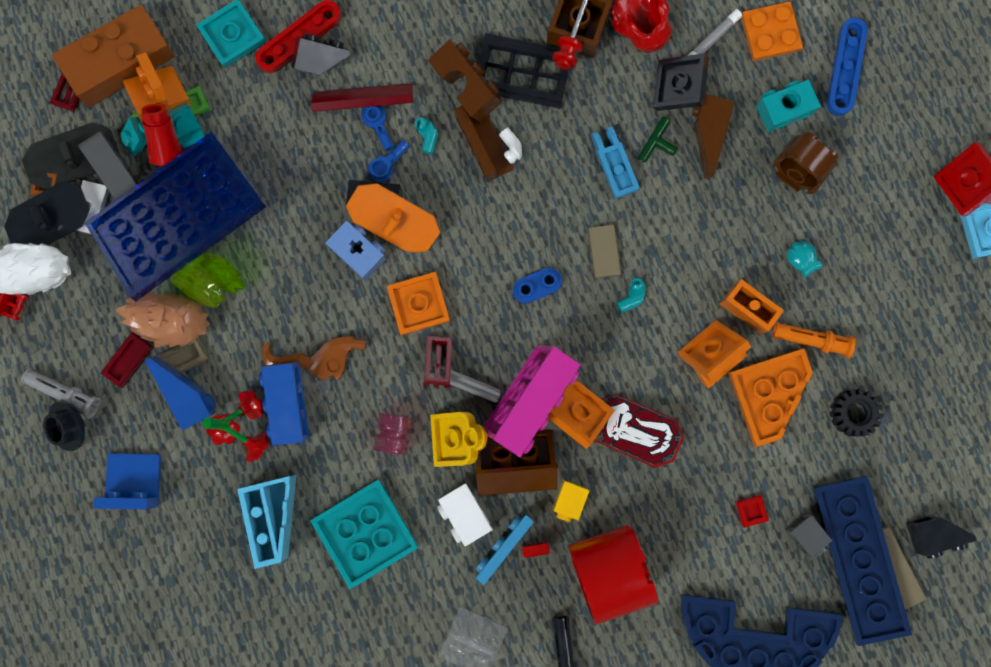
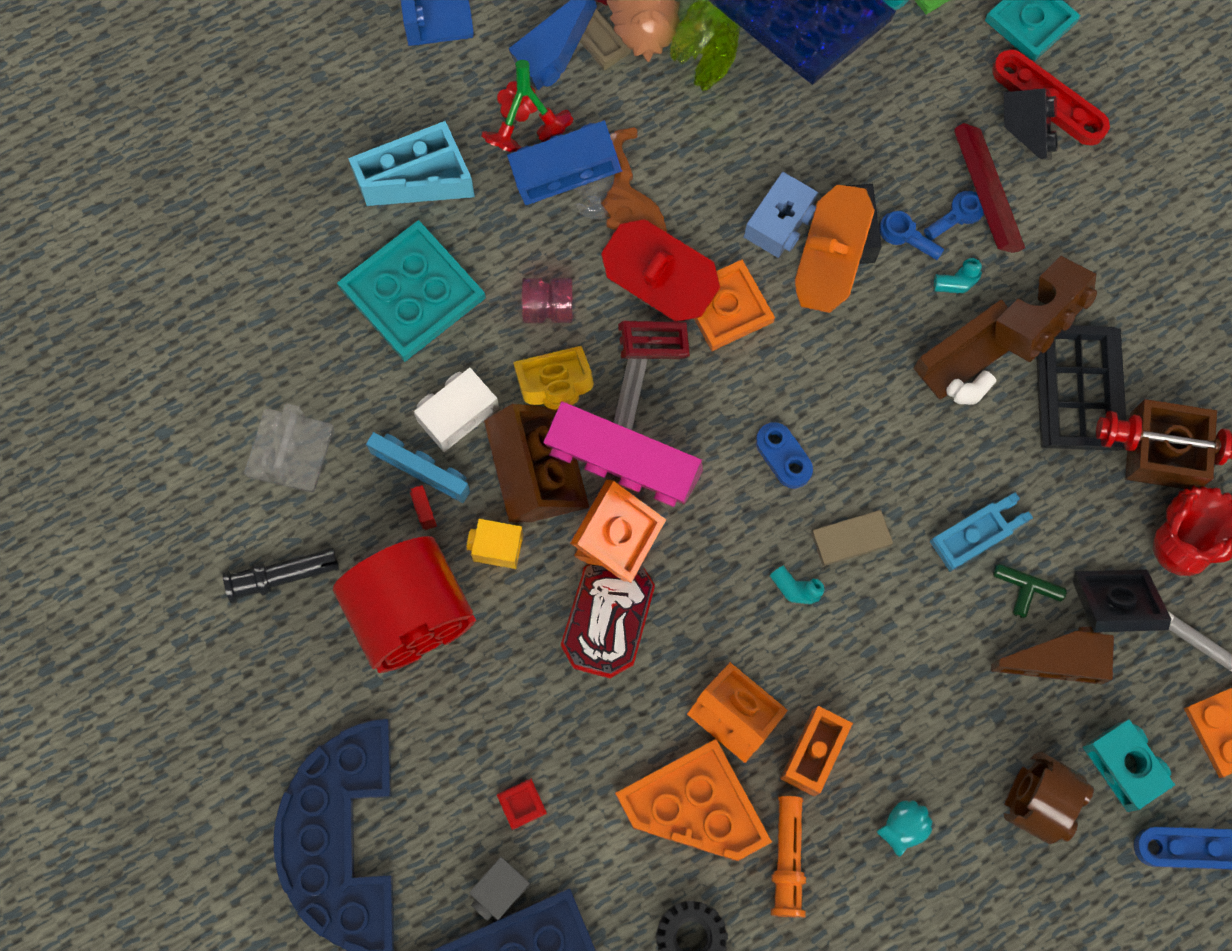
camera: 75 degrees right, 10 degrees down
(384, 346) = (660, 270): none -> red shield

